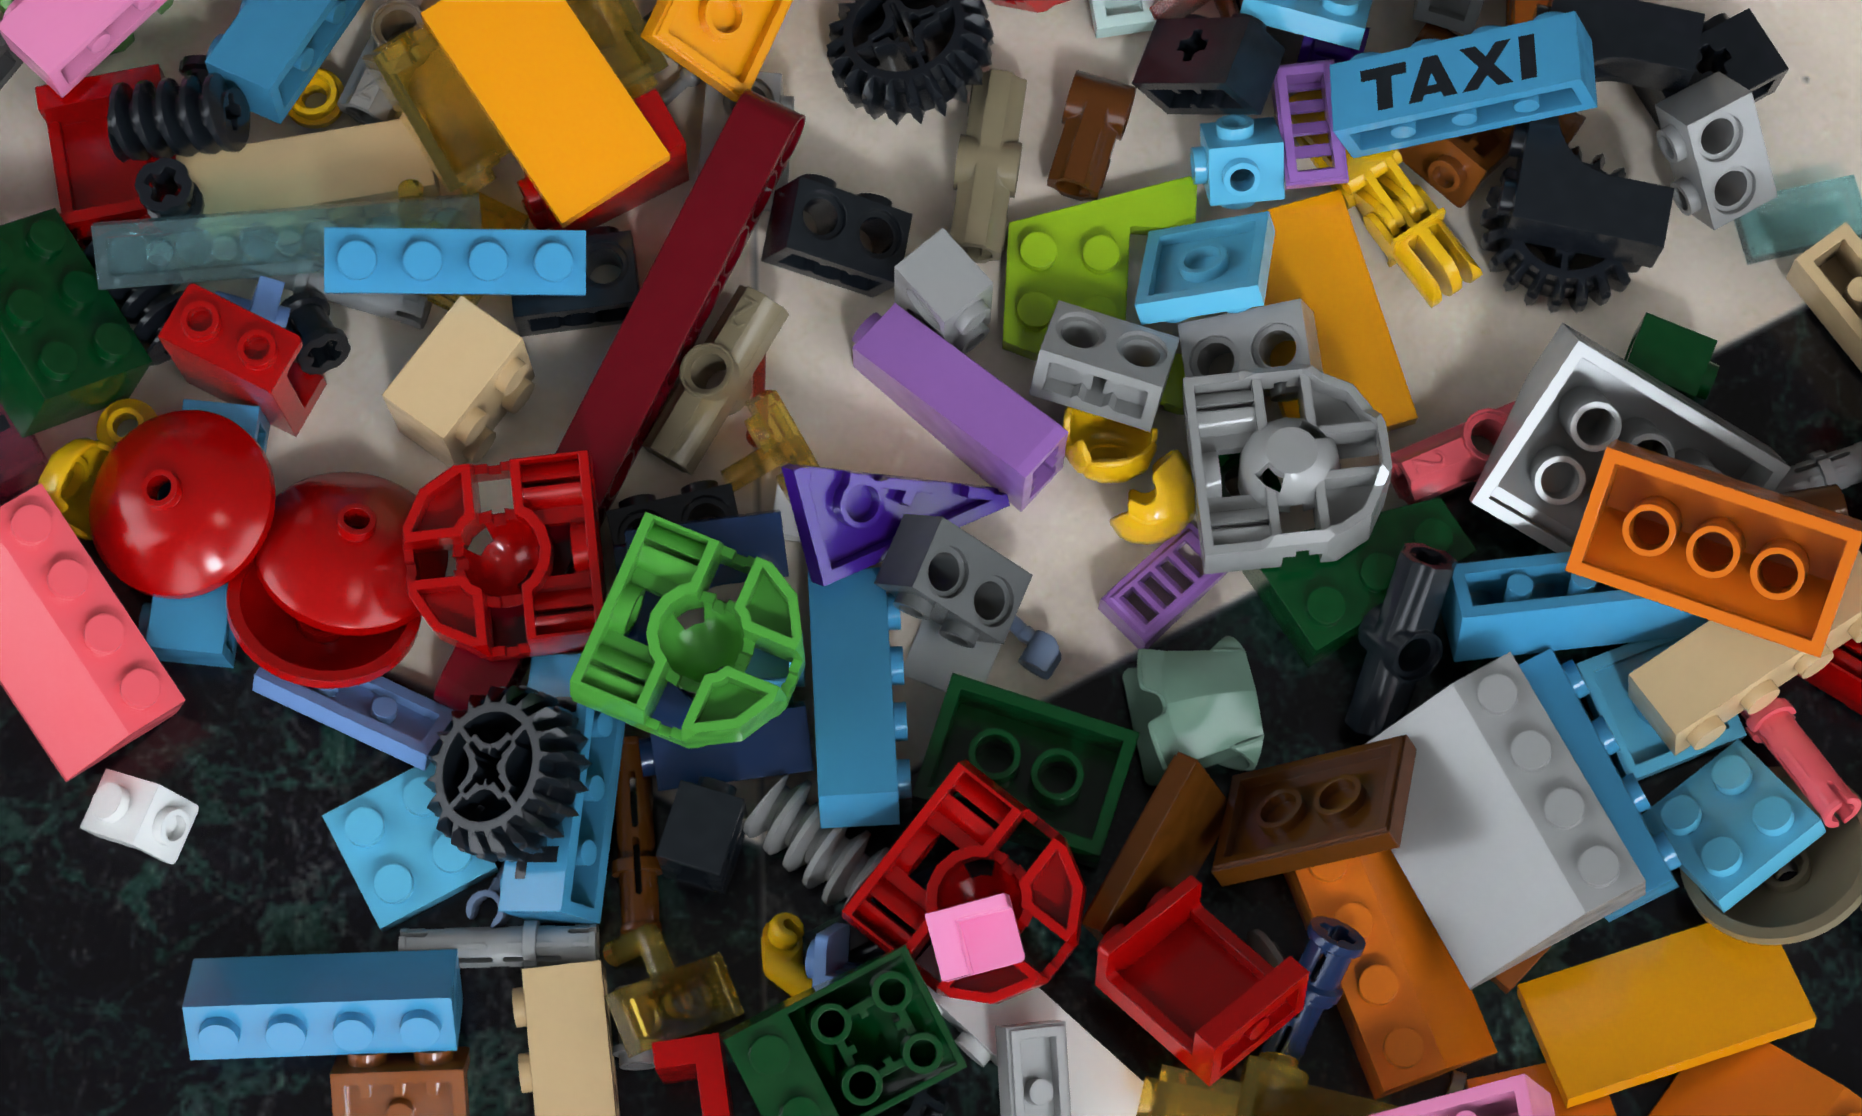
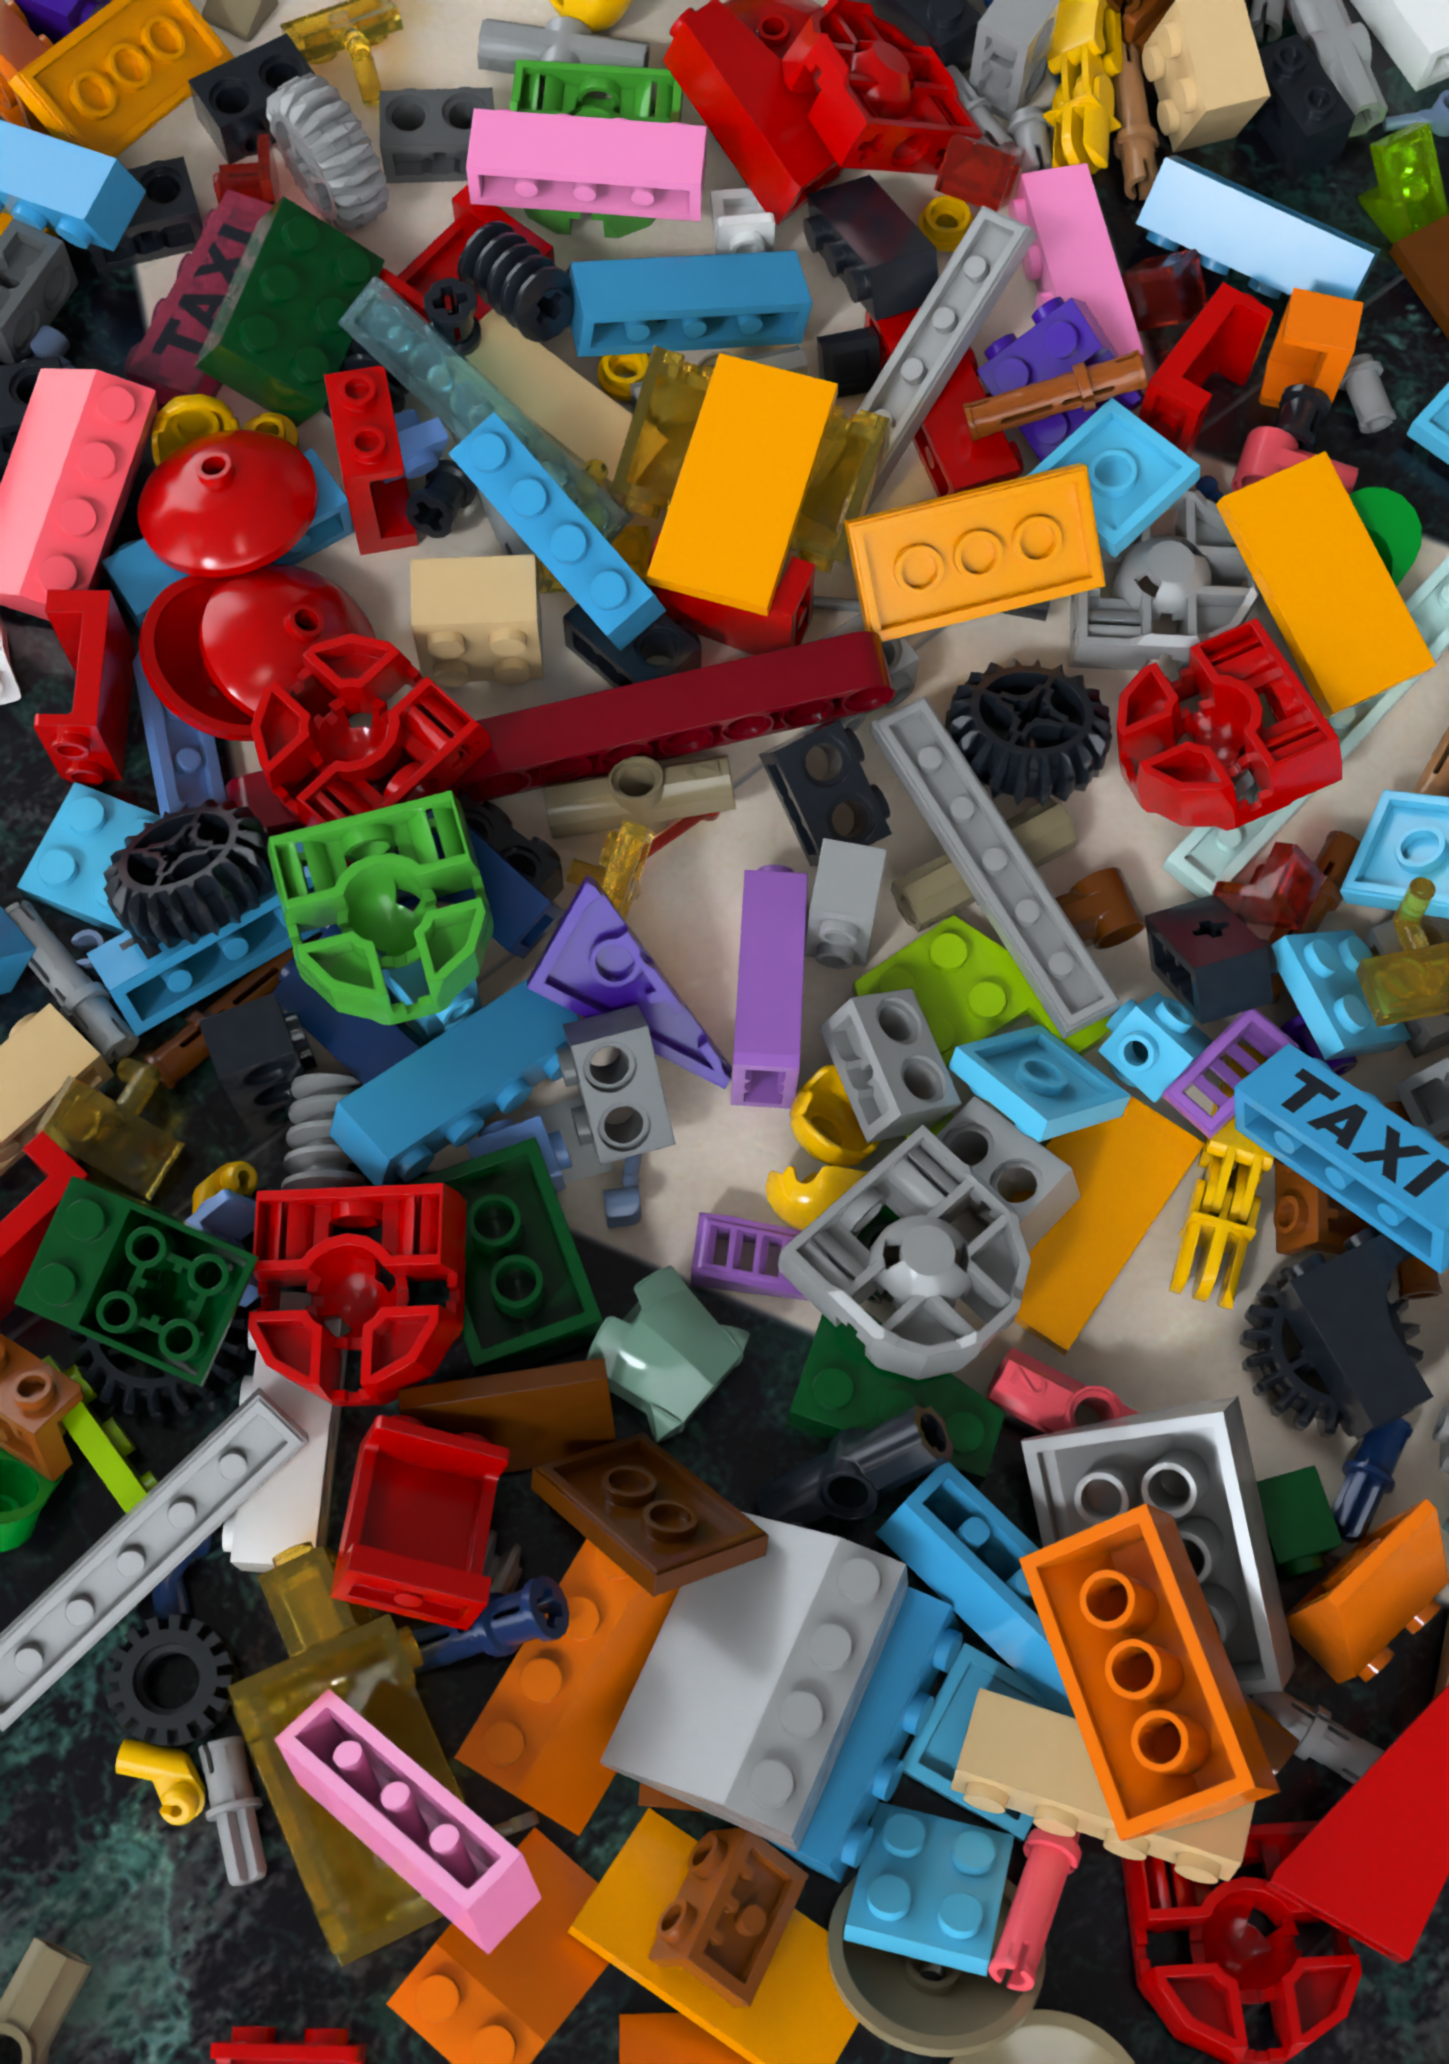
camera: 50 degrees right, 5 degrees down
(213, 696) = (93, 737): none -> red panel
(925, 701) = (507, 1133): none -> medium blue bracket
(975, 937) = (301, 1304): bright pink panel -> none
(1003, 159) = (995, 868): none -> light grey tile
(1643, 979) = (729, 1913): none -> dark orange bracket
(1681, 291) = (1368, 1479): none -> dark blue axle
(1765, 351) = (1373, 1595): none -> orange slope

